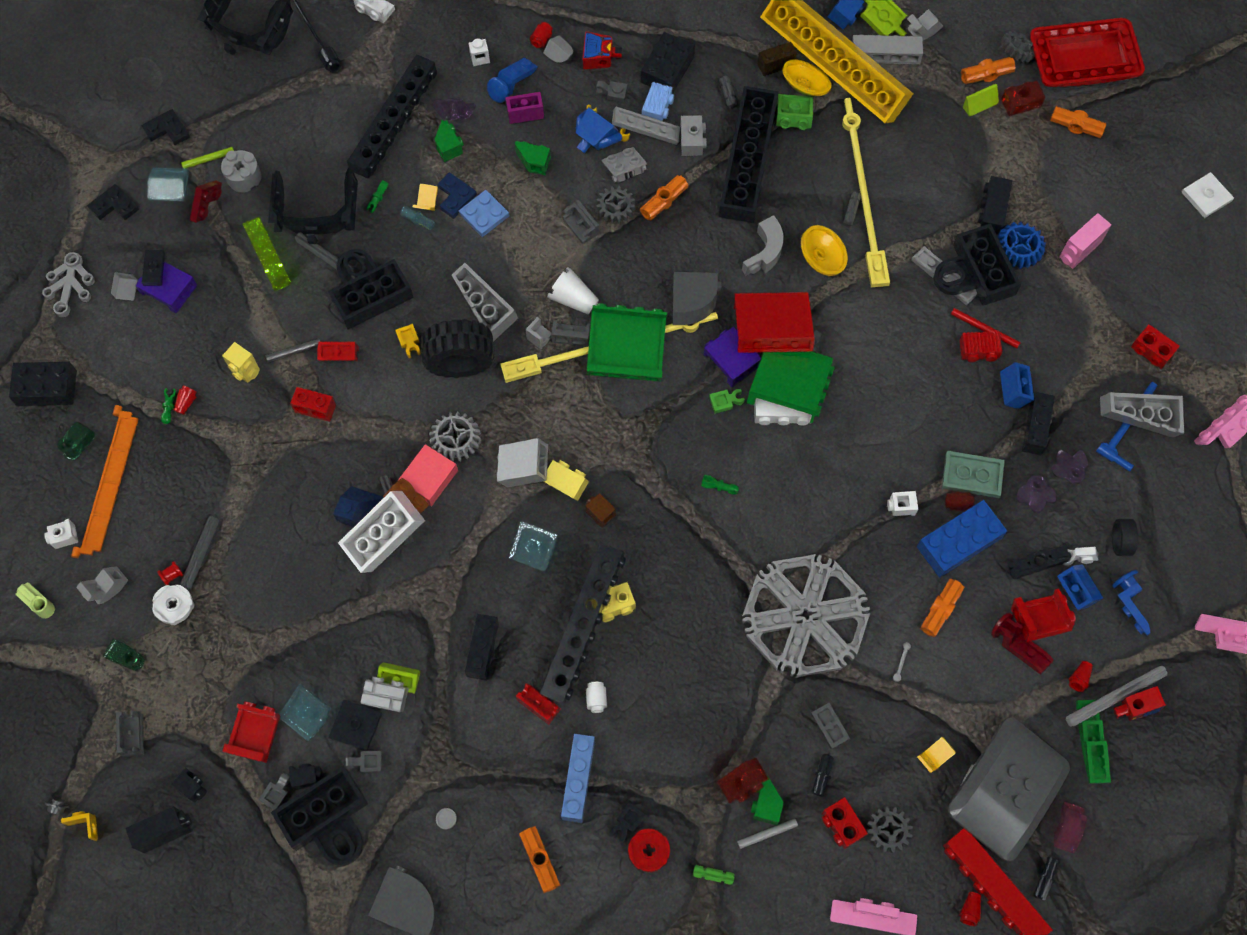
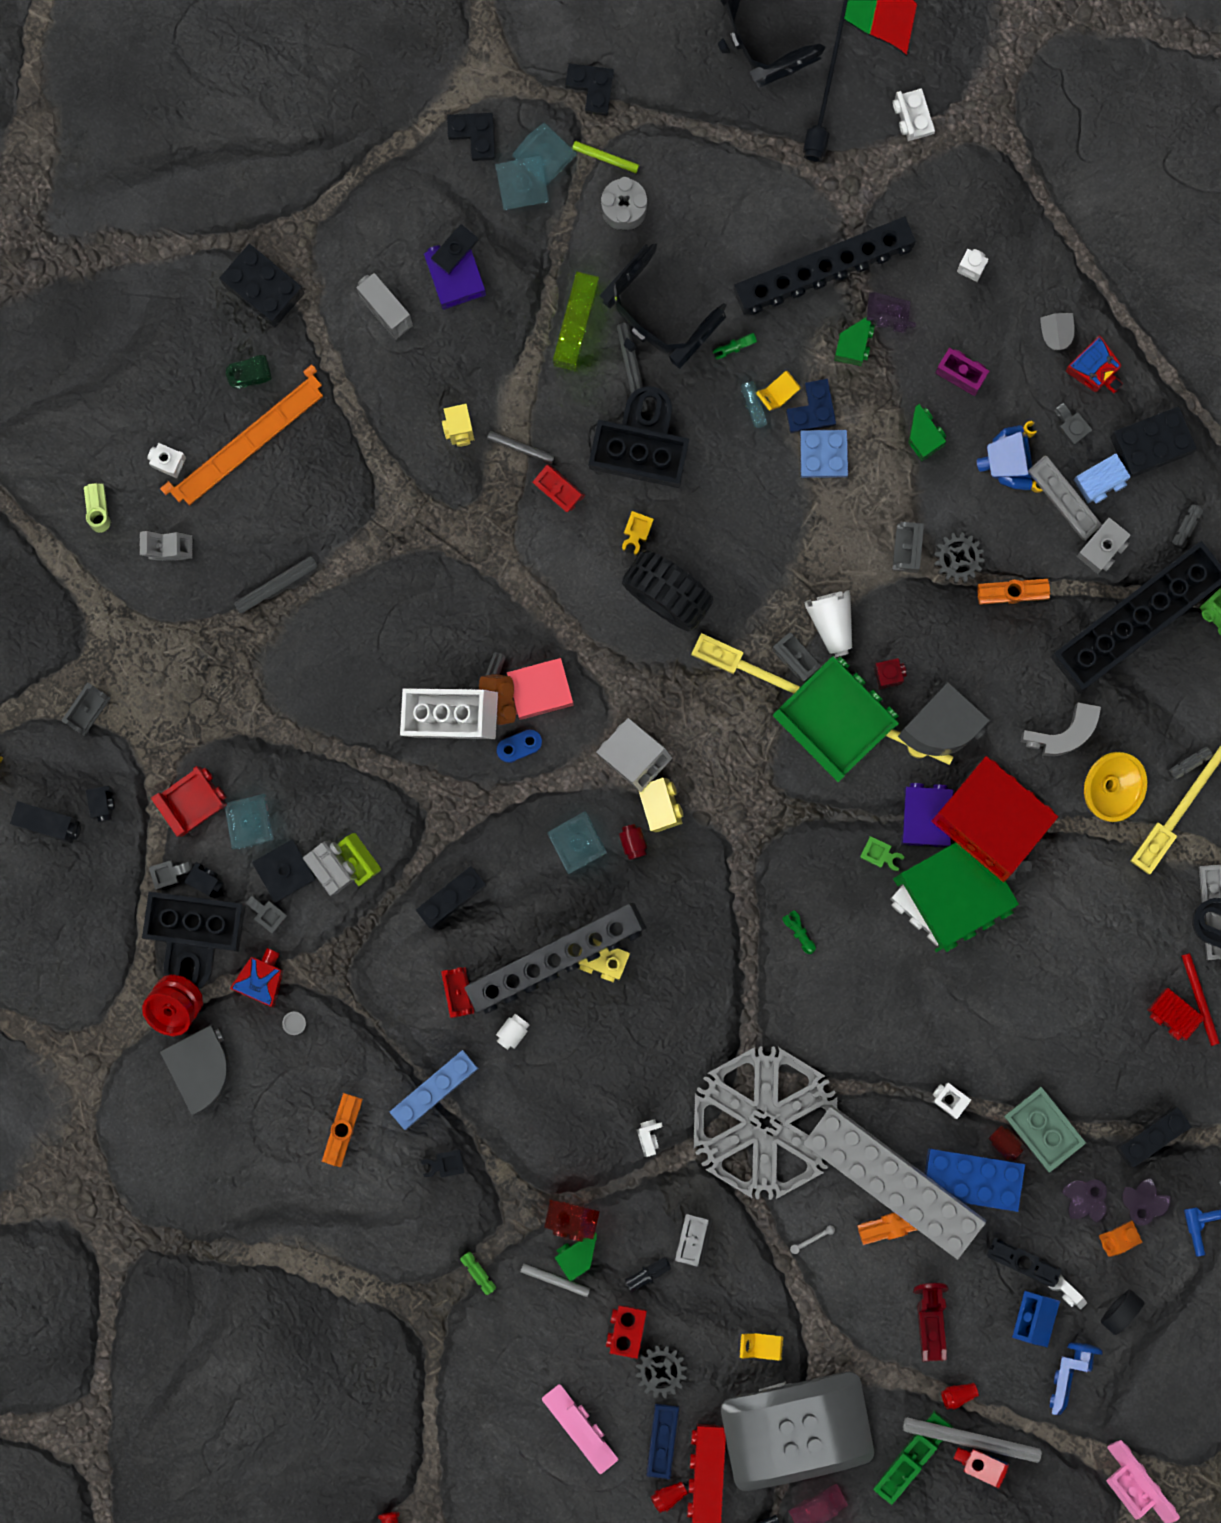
camera: 45 degrees right, 15 degrees up
(67, 283) = (367, 188): light grey plant -> none
(122, 654) = (133, 625): clear green piece -> none
(124, 286) = (414, 240): light grey panel -> none
(134, 333) = (384, 305): none -> light grey brick
(166, 206) = (522, 182): none -> clear light blue slope
(168, 406) = (359, 407): green piece -> none
(170, 573) = (234, 584): red bush -> none
(172, 593) = (205, 626): white plate -> none
(184, 399) = (379, 414): red cone -> none
(203, 196) = (562, 208): dark red plate -> none
(313, 404) = (493, 524): red brick -> none
(350, 875) = (172, 1005): none -> red wheel
(355, 506) = (453, 665): dark blue slope -> none
(398, 808) = (260, 979): none -> torso
(445, 520) = (519, 746): none -> blue plate
(458, 451) = (586, 665): light grey gear -> none
(484, 301) = (738, 561): light grey wedge -> none
(504, 84) = (979, 321): blue piece -> none
(538, 334) = (764, 632): light grey panel -> none
(541, 35) = (1054, 297): red brick -> none
(568, 517) = (633, 841): none -> dark red brick
(600, 510) = (667, 860): reddish brown brick -> none
(624, 163) = (1009, 518): light grey hinge -> none
(634, 295) = (889, 673): none -> dark red brick
(642, 860) = (427, 1204): red plate -> none
(743, 687) = (648, 1141): none -> white bracket
(919, 577) = (895, 1182): none -> light grey plate
(932, 876) = (662, 1441): none -> dark blue tile
(1017, 385) = (1168, 1084): blue brick -> none
(1043, 616) = (977, 1314): red panel -> none
(1078, 499) = (1120, 1239): none -> orange bracket

